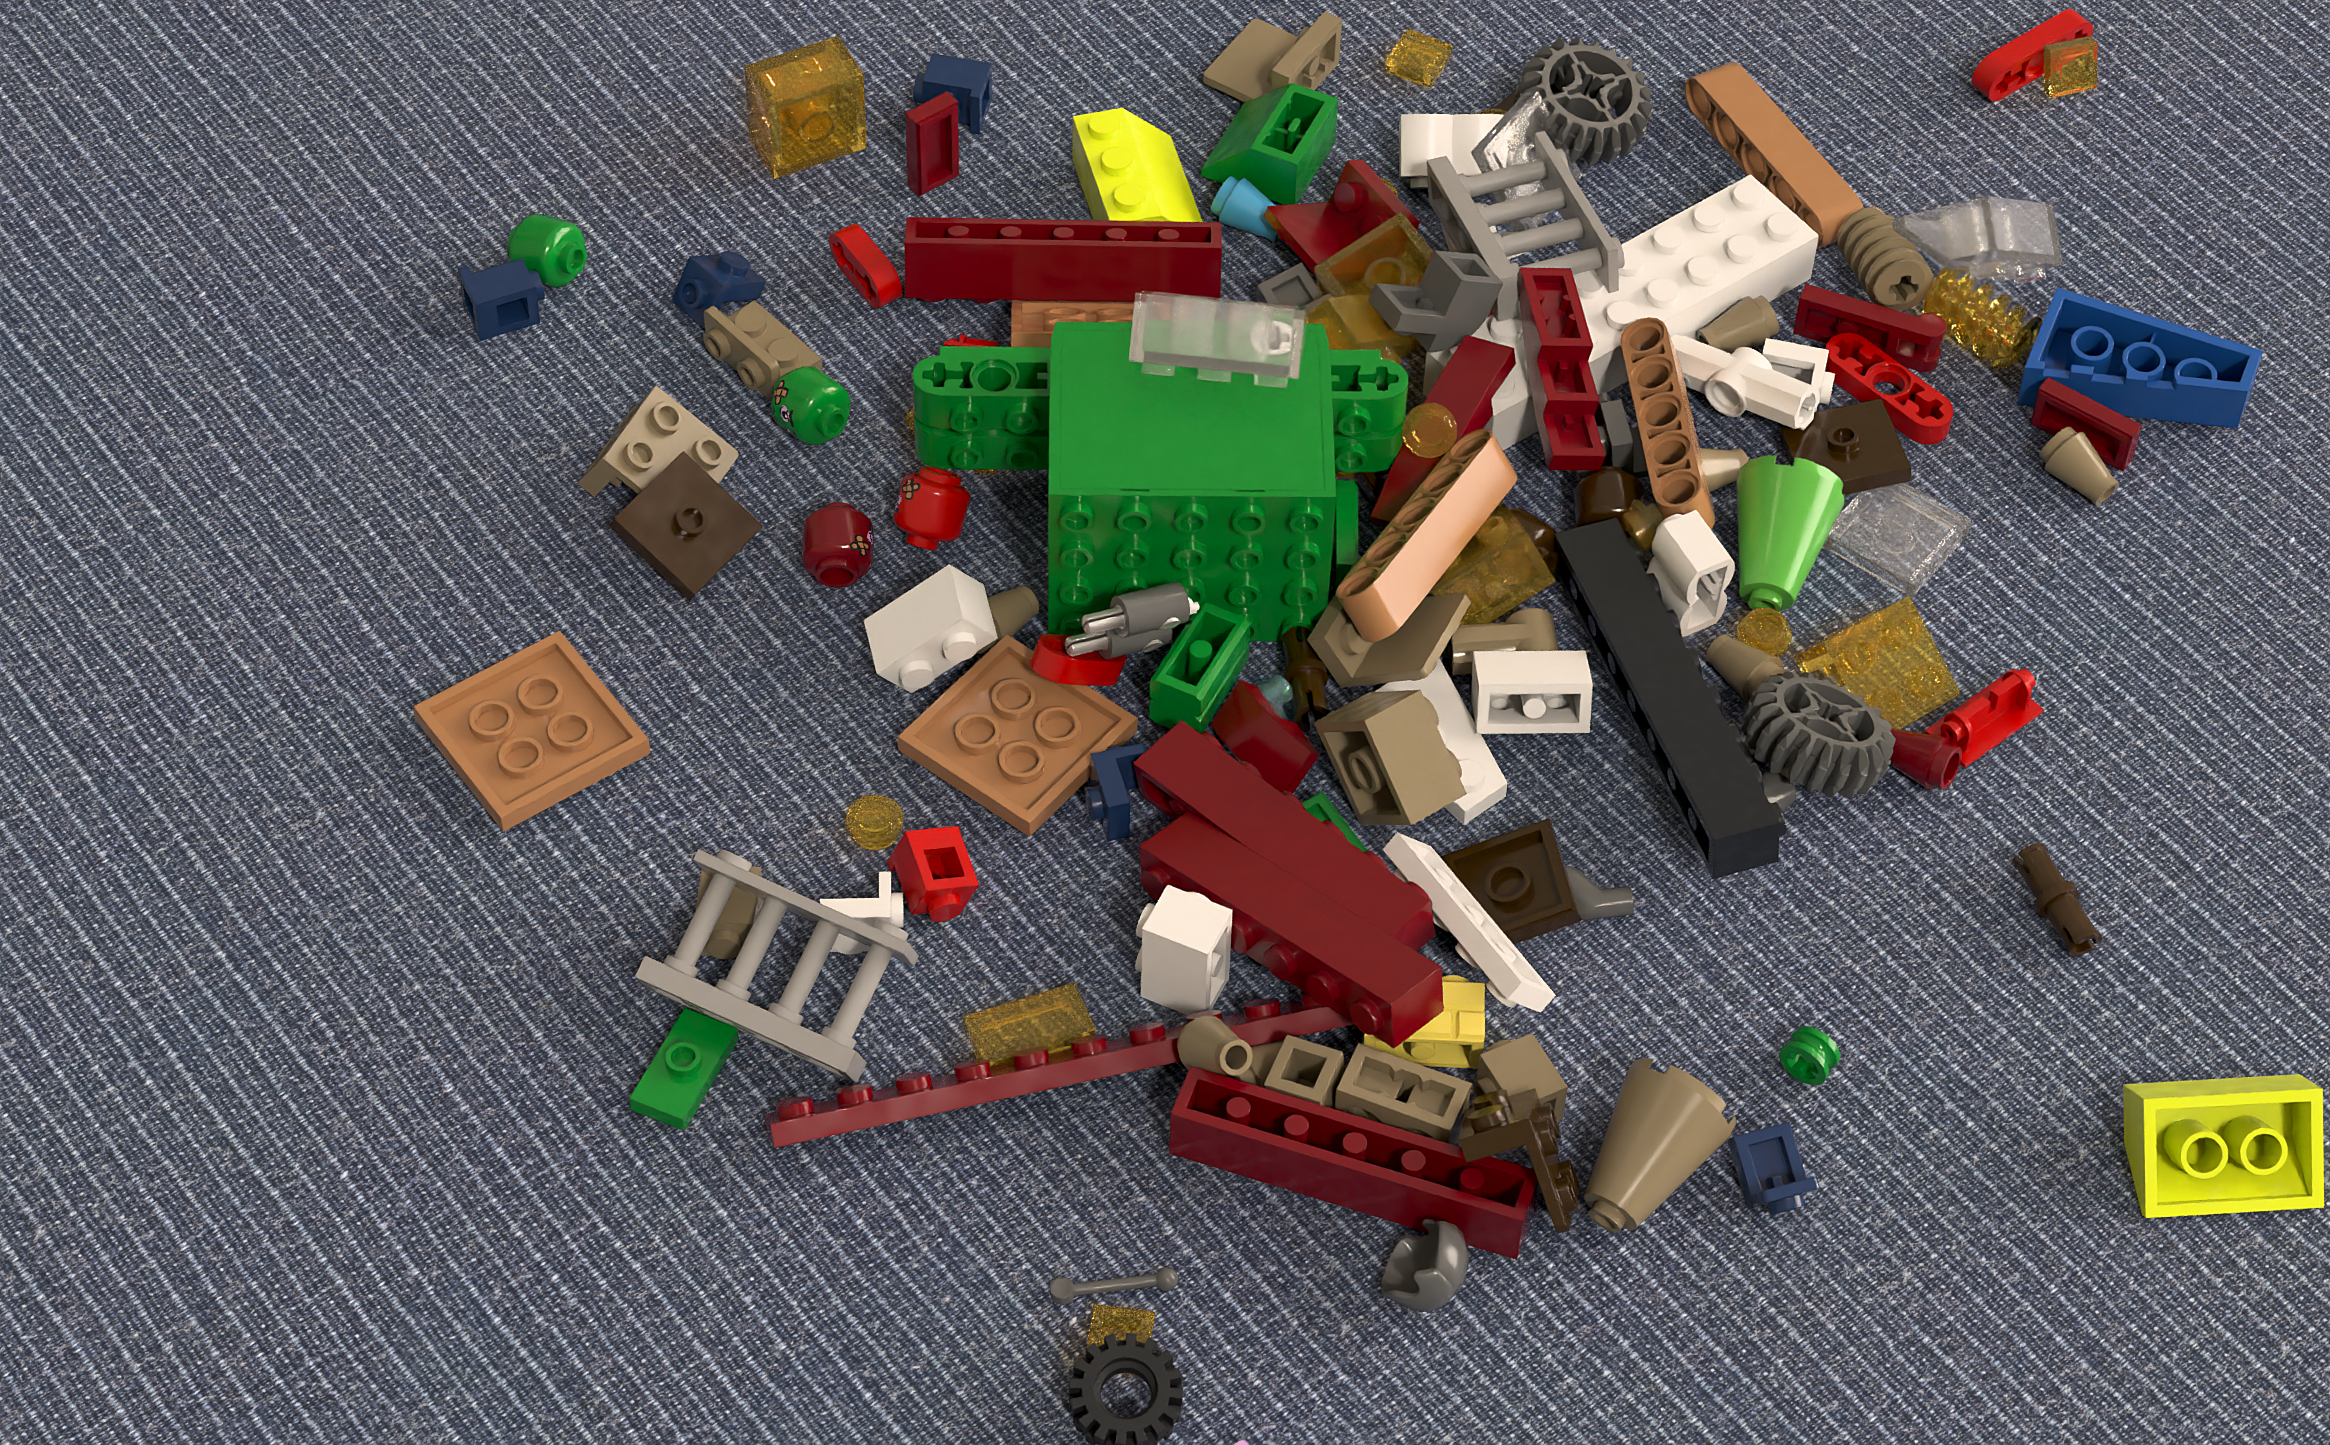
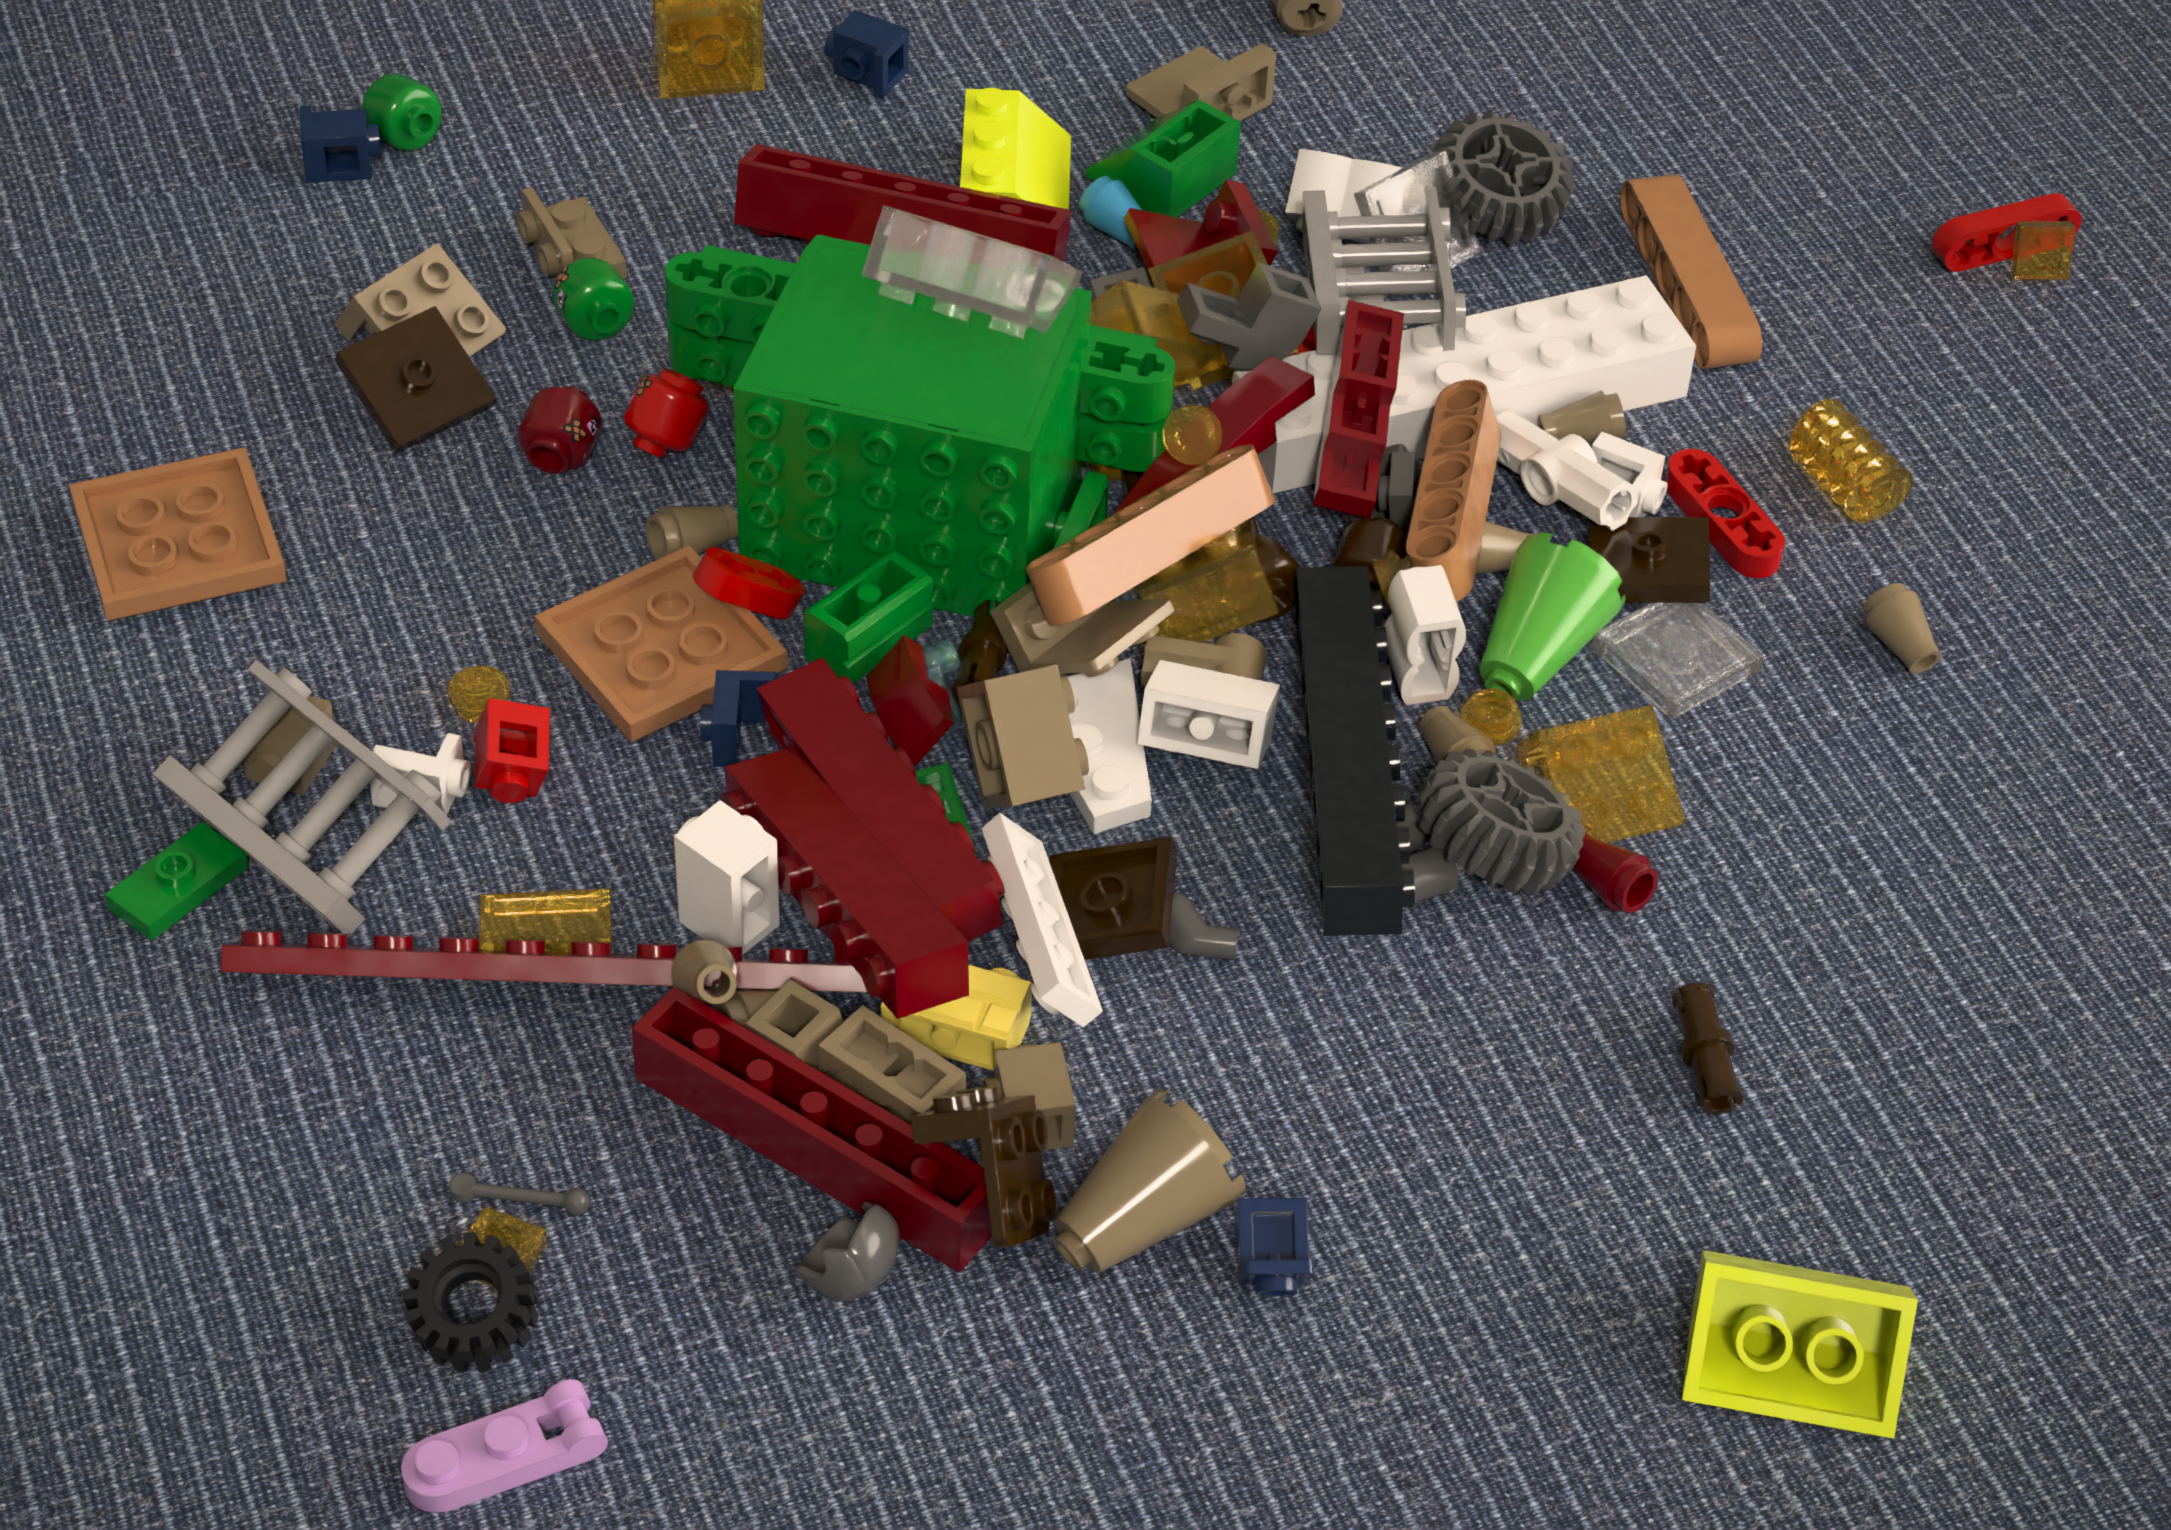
camera: 15 degrees right, 5 degrees down
(715, 280) = (556, 170): dark blue bracket -> none
(865, 266) = (707, 187): red beam -> none
(930, 629) = (607, 519): white brick -> none
(932, 143) = (816, 87): dark red tile -> none
(1134, 622) = (806, 549): dark grey piece -> none
(1418, 58) = (1356, 114): clear yellow tile -> none
(1809, 1055) = (1365, 1141): green bush -> none
(1883, 260) = (1762, 386): dark tan piece -> none
(1902, 336) = (1684, 425): dark red plate -> none
(1988, 237) = (1878, 379): clear slope -> none
(1990, 715) = (1706, 851): red hinge -> none
(2108, 431) = (1945, 599): dark red tile -> none
(2140, 363) = (1999, 541): blue wedge -> none

